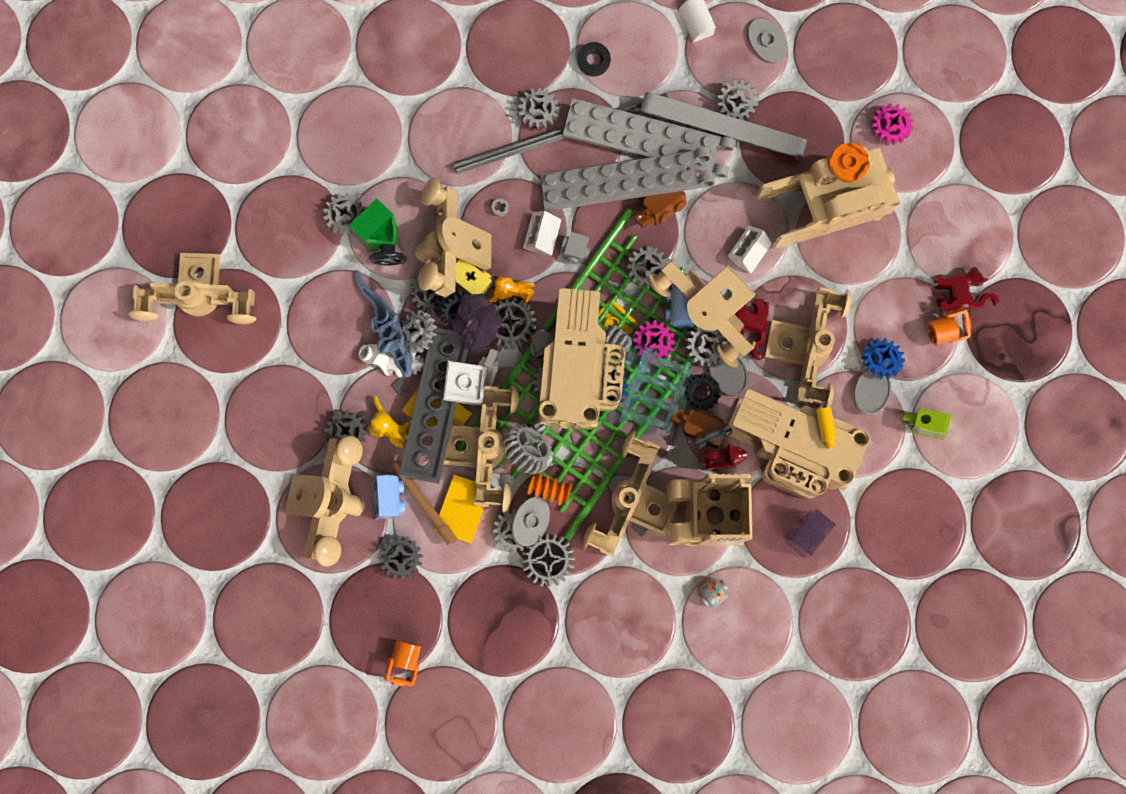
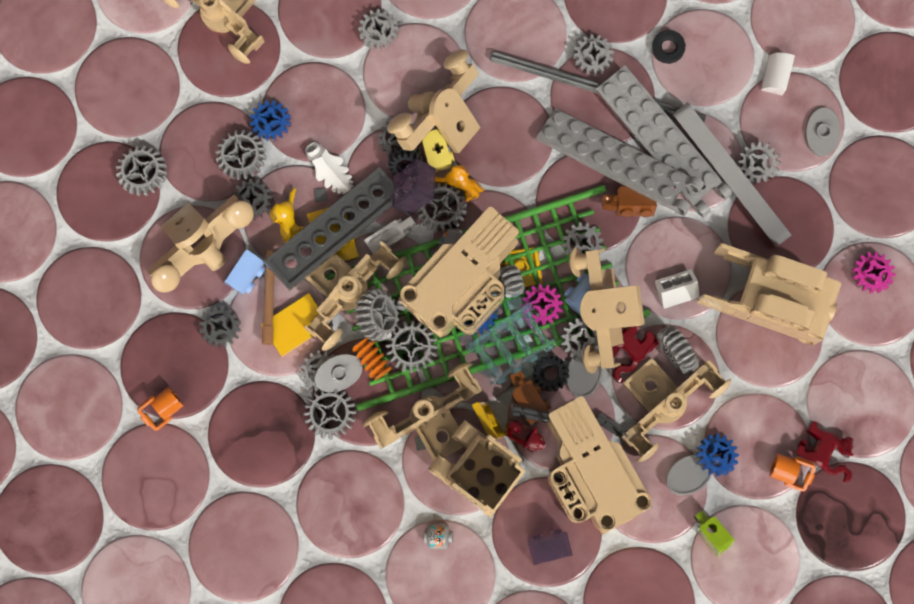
camera: 45 degrees right, 0 degrees up
(236, 471) = (135, 174): none -> light grey gear
(302, 407) = (225, 156): none -> light grey gear
(318, 351) = (271, 112): none -> blue gear
(378, 231) = (393, 62): green piece -> none
(388, 329) = (343, 142): sand blue animal -> none
(418, 331) = (364, 161): light grey gear -> none
(464, 383) = (369, 228): white tile -> none
(502, 202) = (509, 109): light grey bush -> none
(542, 233) = (520, 155): white brick -> none
(575, 248) = (537, 186): light grey brick -> none
(588, 444) = (402, 346): none -> light grey gear
(684, 467) = (488, 420): none -> yellow tile
(784, 398) = (611, 425): none -> dark grey axle
(789, 297) = (677, 350): none -> light grey gear
(826, 426) = (621, 471): yellow cylinder -> none
(849, 162) = (801, 275): orange tile -> none

